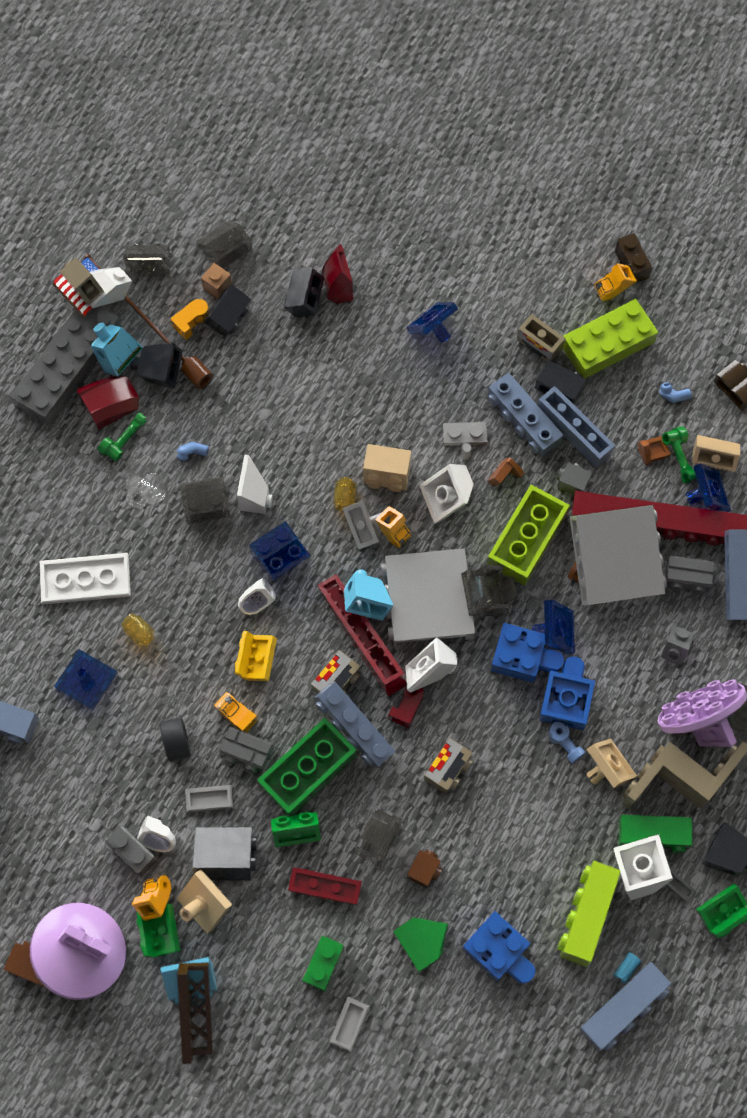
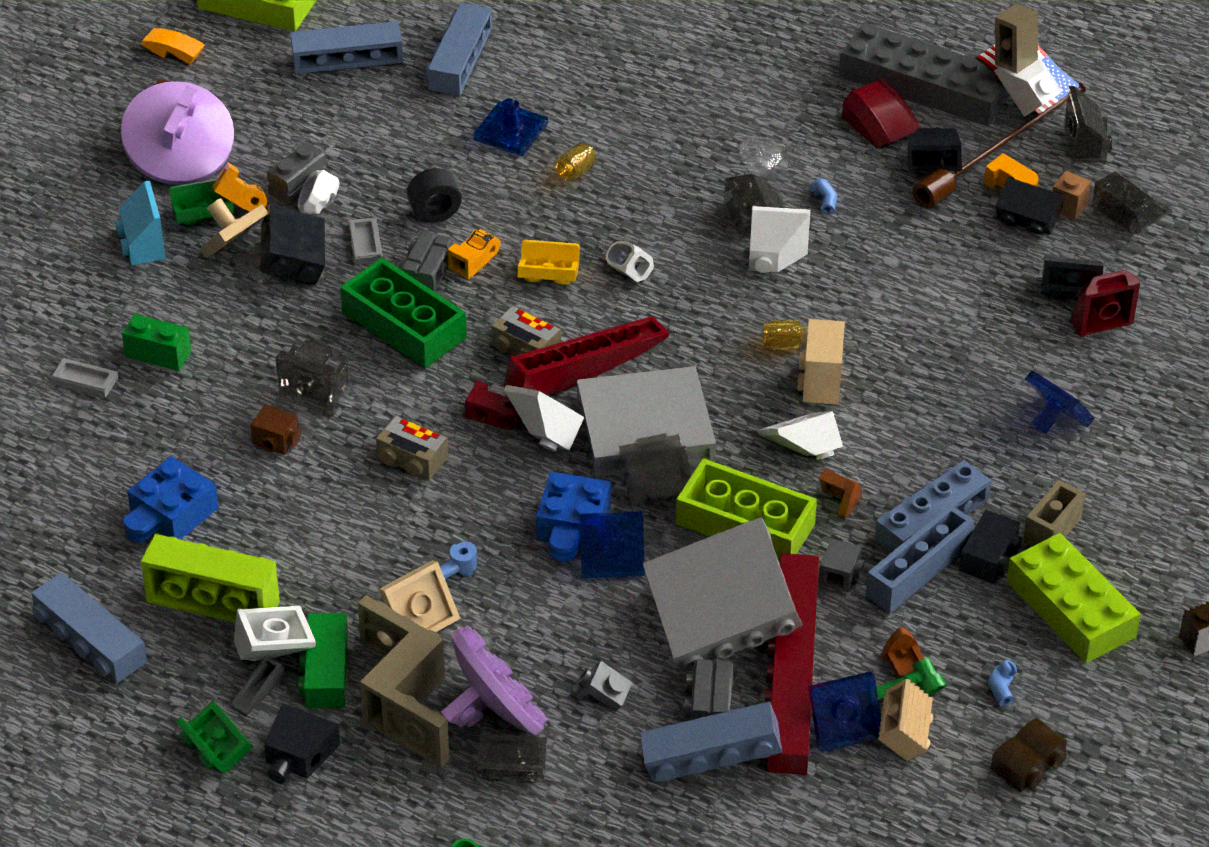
camera: 85 degrees right, 25 degrees down
(85, 578) = (640, 119): white tile -> none
(112, 448) = (817, 124): green brick -> none
(114, 348) = (949, 103): medium azure torso -> none
(186, 1014) = (99, 217): dark brown fence -> none
(278, 551) = (694, 270): clear blue slope -> none
(295, 829) = (324, 308): green bracket -> none
(324, 886) = (254, 344): dark red plate -> none
(354, 724) = (459, 343): sand blue brick -> none
(362, 524) = (742, 349): light grey plate -> none
(367, 596) = (637, 347): medium azure torso -> none
(395, 530) = (737, 374): light orange leg -> none
(422, 940) = (184, 436): green slope -> none
(465, 435) = (892, 452): light grey plate -> none
(567, 695) = (512, 558): blue brick -> none
(615, 282) = (1167, 597): light orange leg -> none
(630, 967) = (151, 636): medium azure piece -> none

